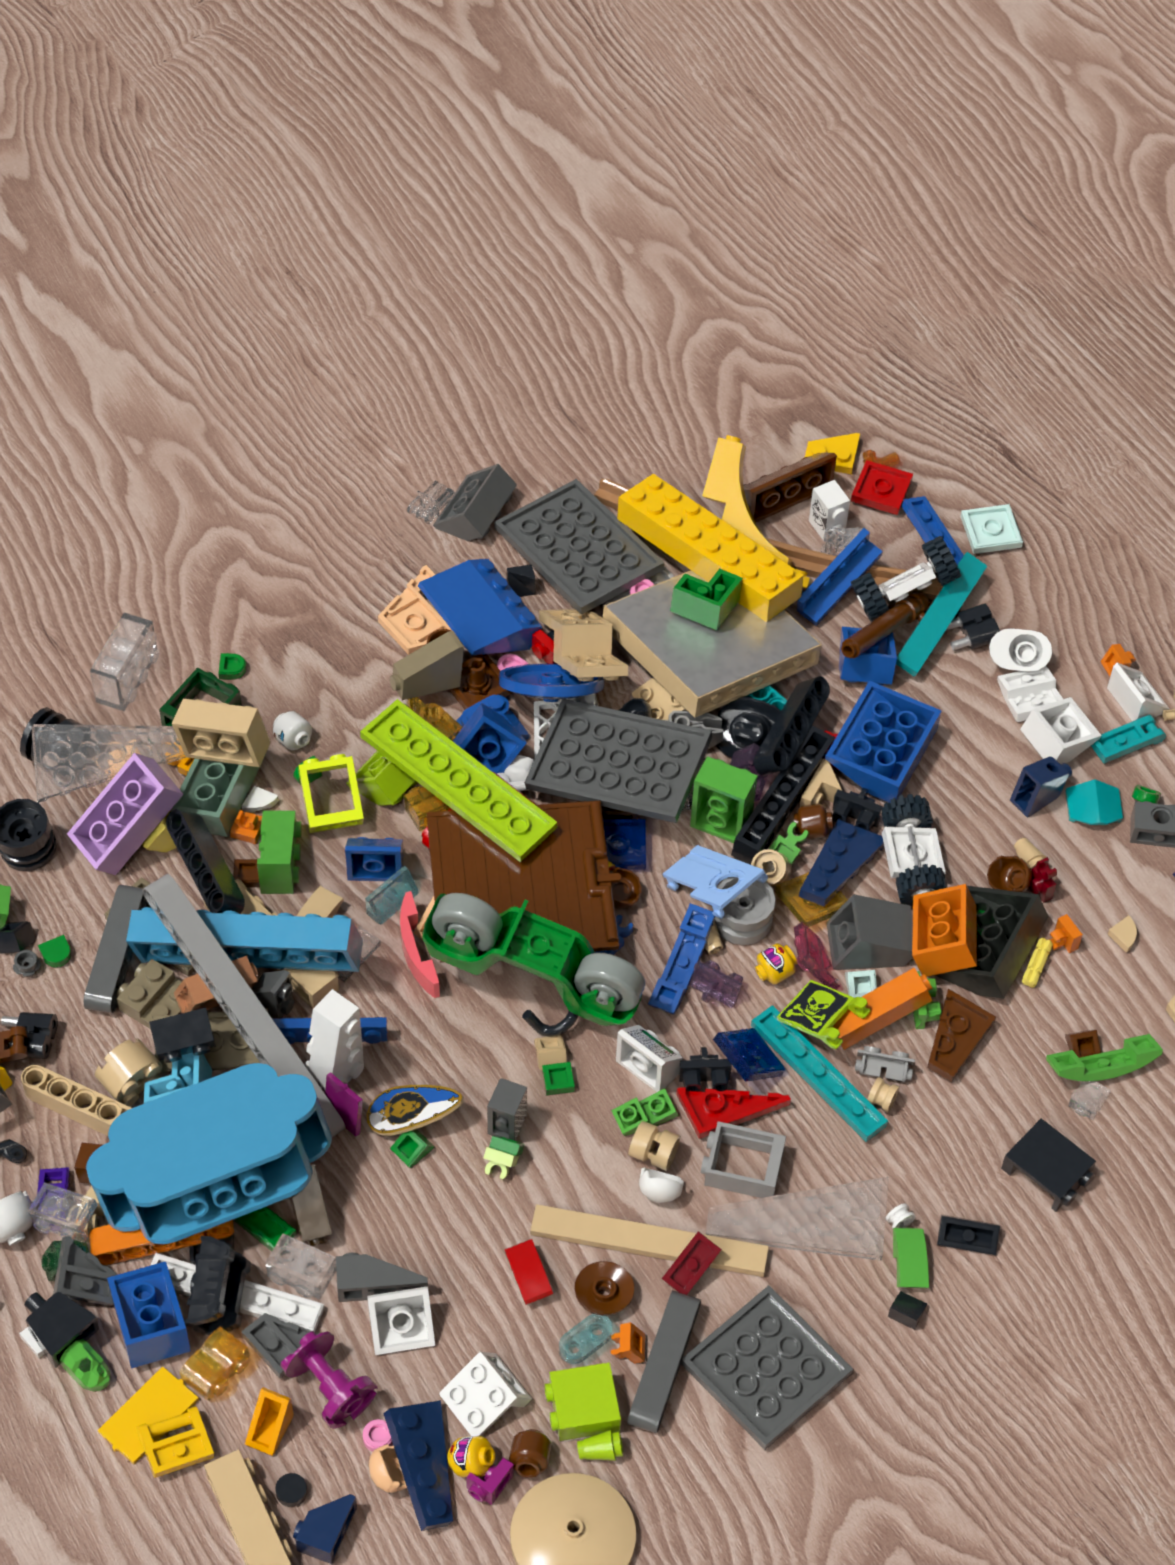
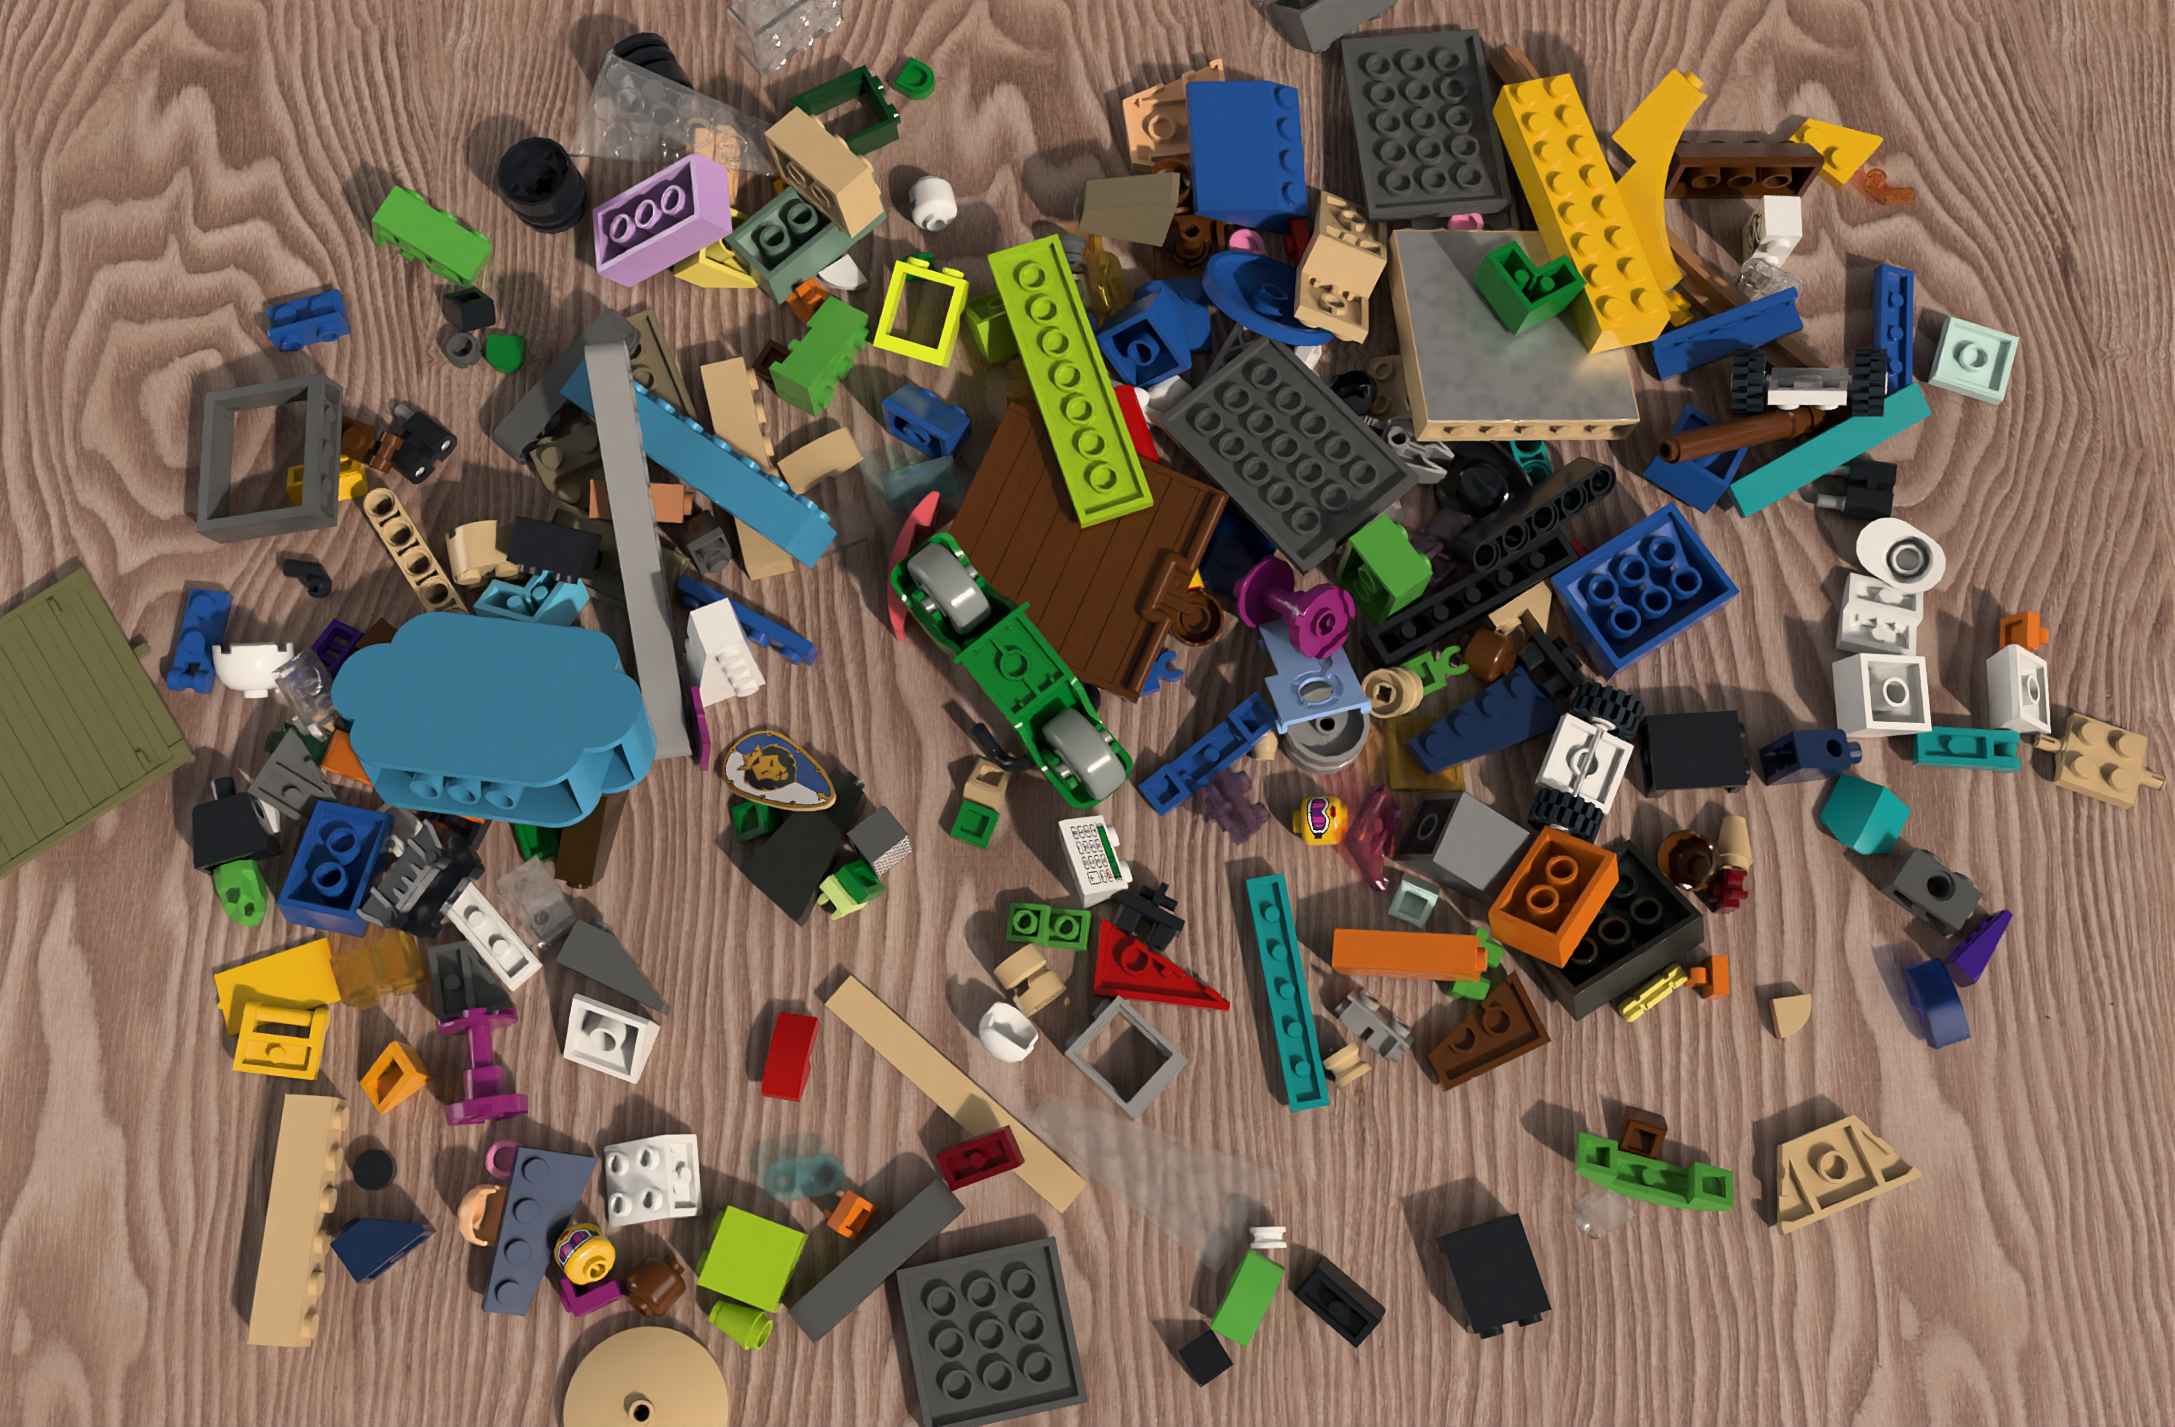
camera: 30 degrees right, 20 degrees up
(204, 862) = (715, 334): black beam -> none
(457, 1148) = (806, 850): none -> pearl dark grey slope
(521, 580) = (1324, 137): black slope -> none
(604, 1277) = (858, 1108): reddish brown dish -> none
(698, 842) = (1313, 617): none -> magenta piece
(749, 1054) = (1213, 924): clear blue plate -> none
(818, 1009) = (1331, 916): lime flag -> none
(882, 487) = (1865, 230): red plate -> none
(971, 816) = (1692, 752): none -> black panel
(1146, 794) = (1939, 840): green tile -> none

